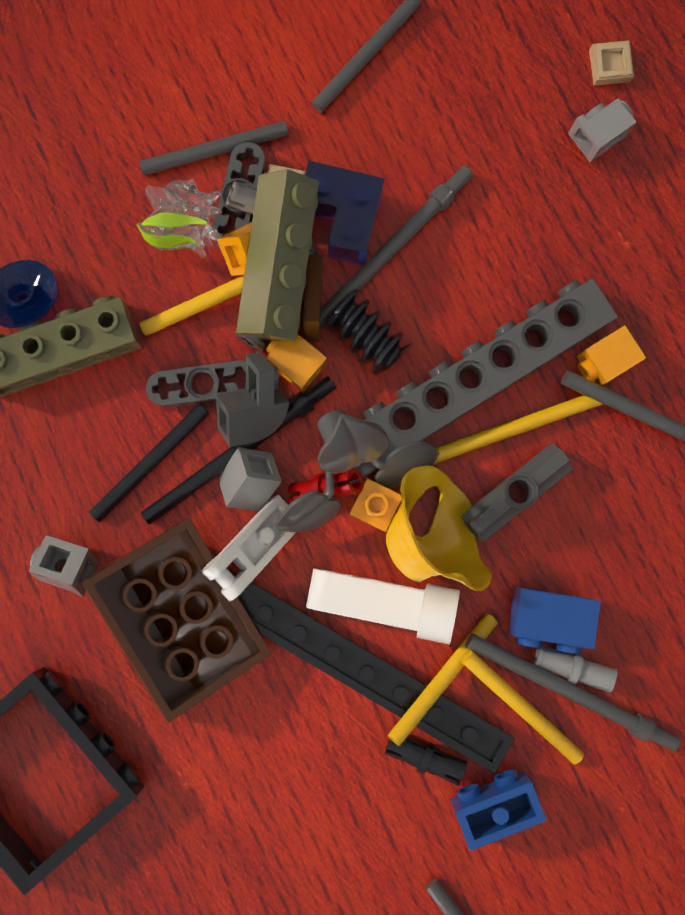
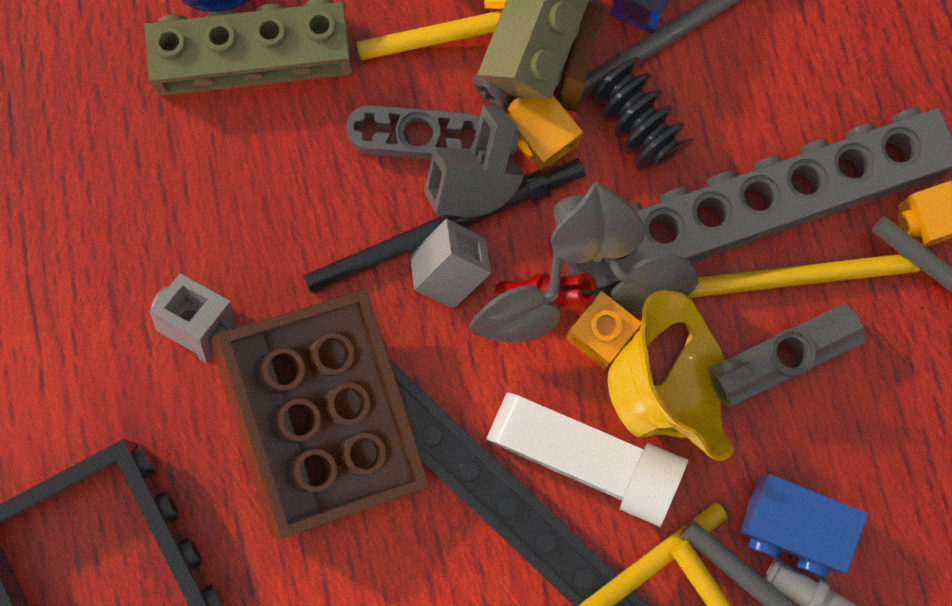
camera: 15 degrees right, 5 degrees down
(149, 462) = (328, 216): black bar -> none
(249, 550) = (431, 349): white plate -> none

